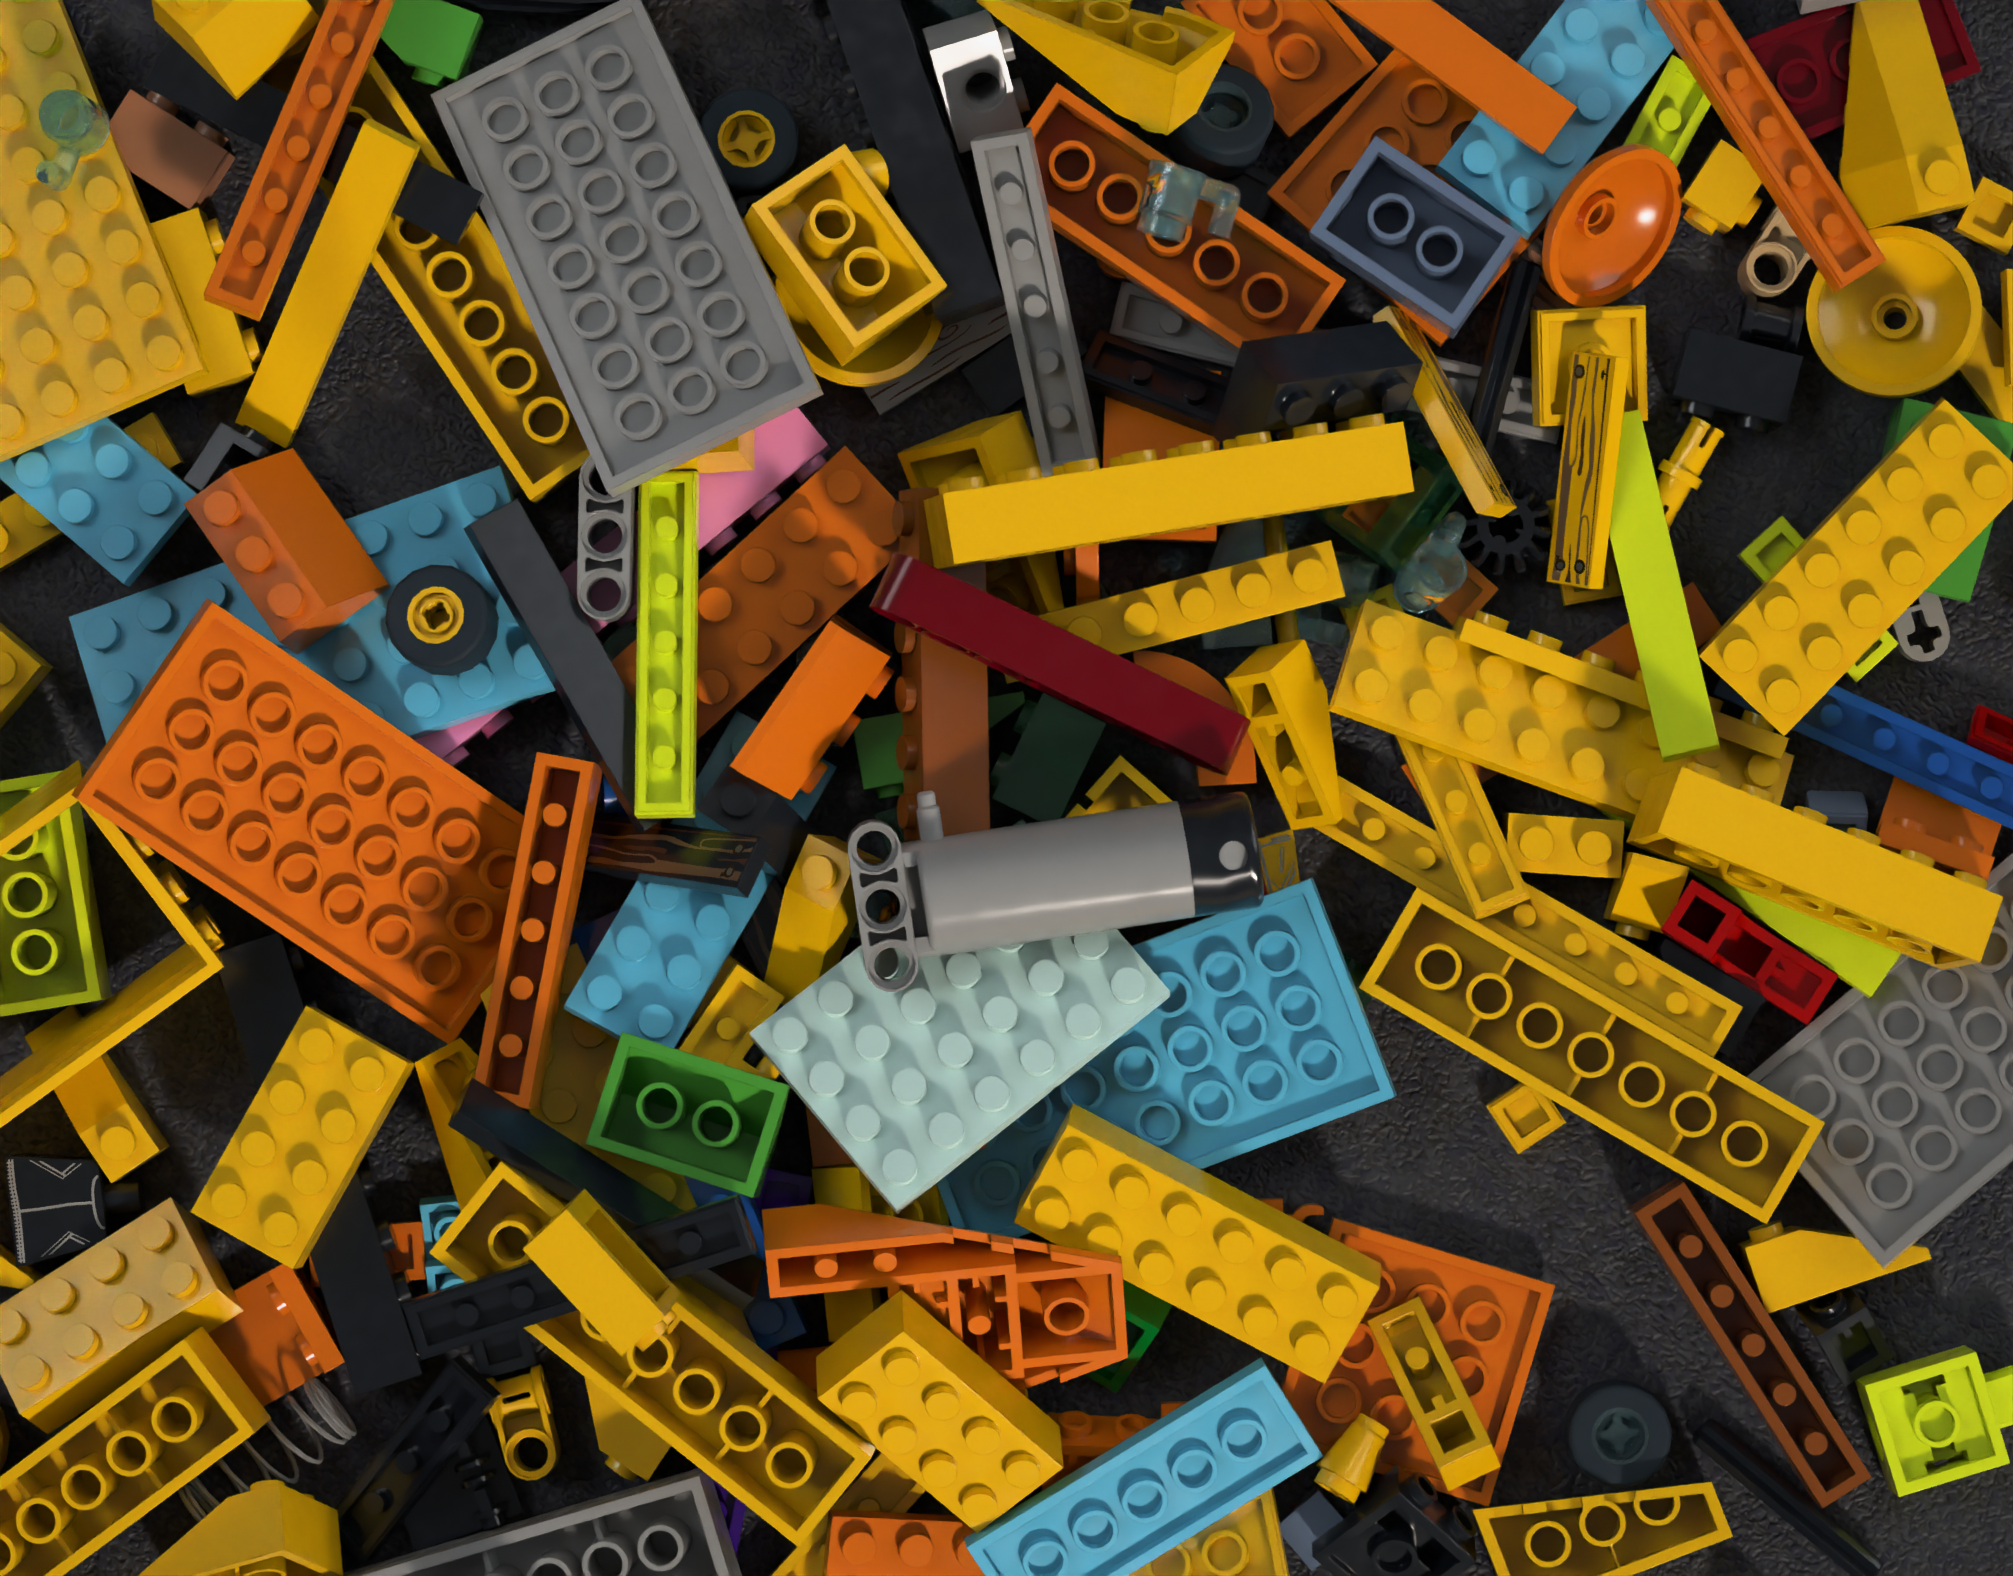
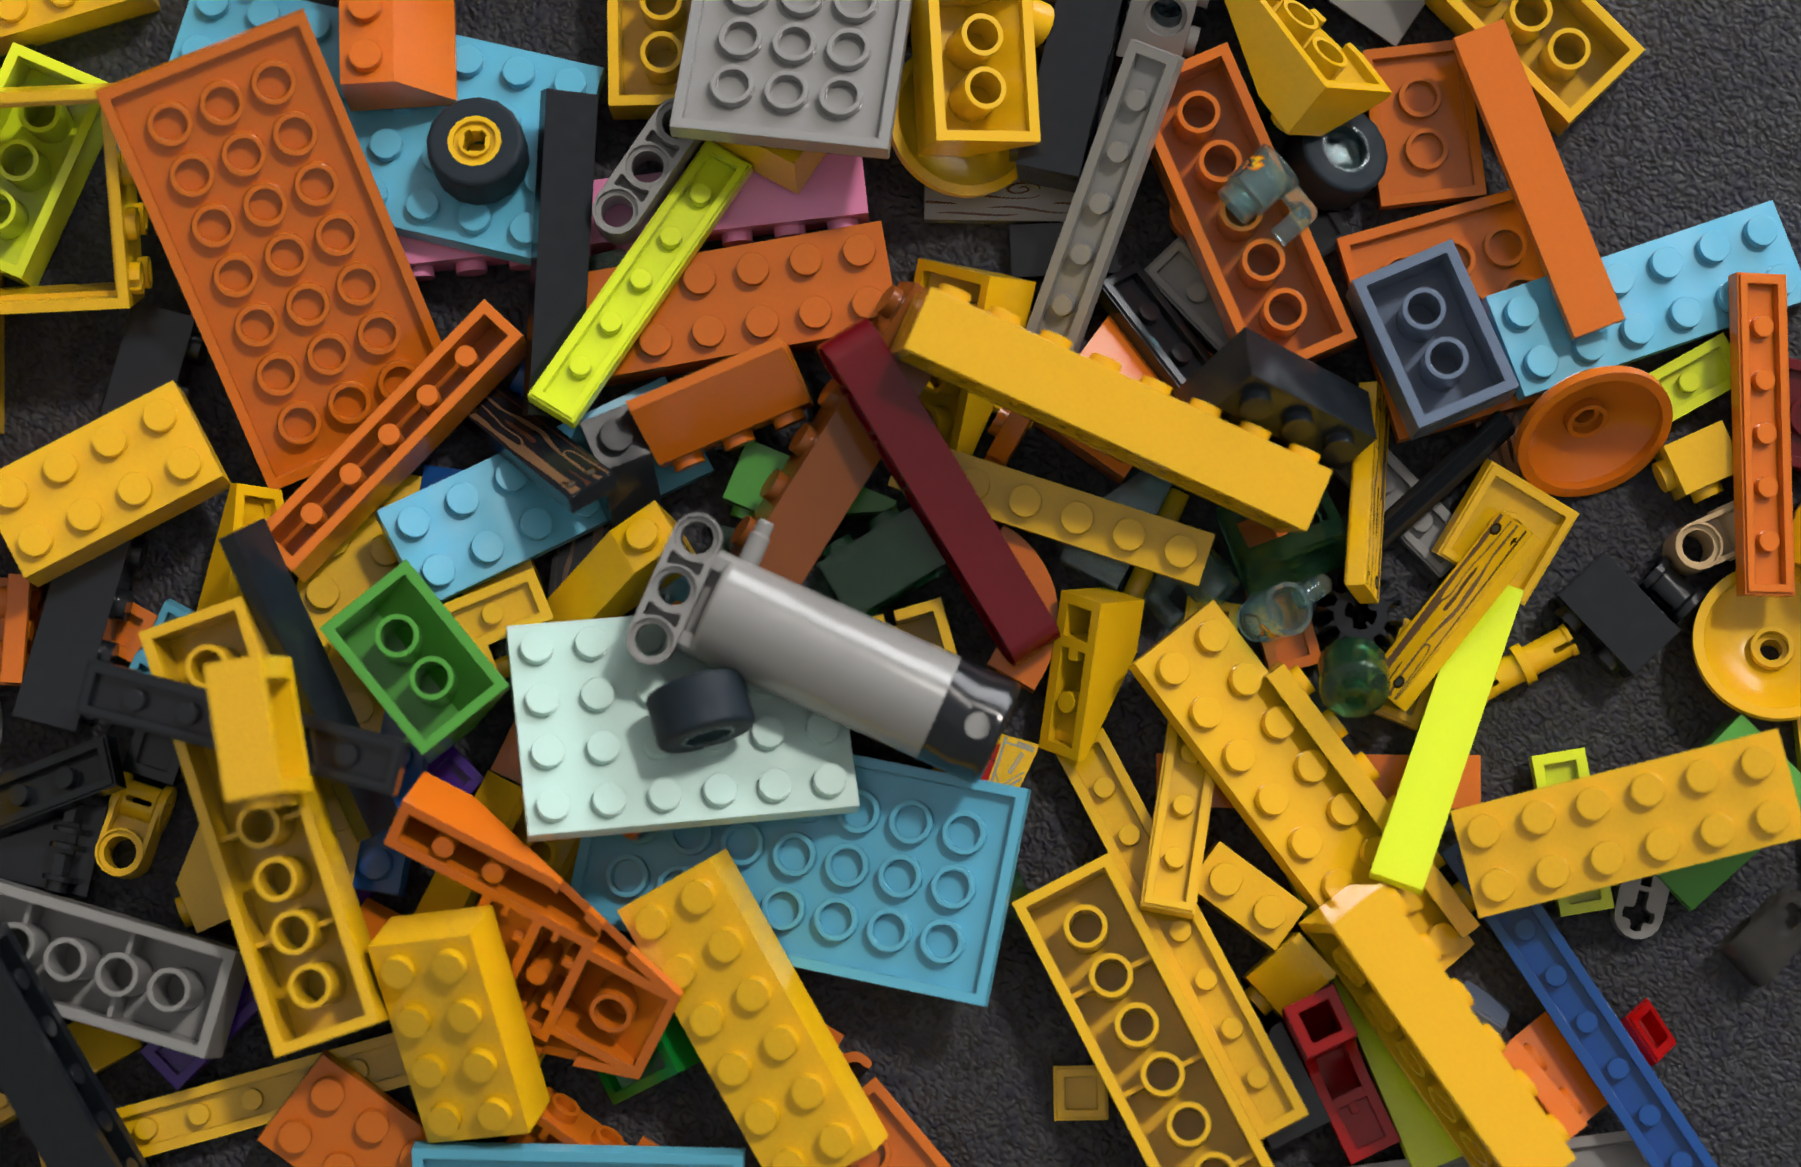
camera: 30 degrees right, 5 degrees down
(976, 1000) = (700, 710): none -> black wheel
(1536, 589) = (1353, 677): none -> clear green head

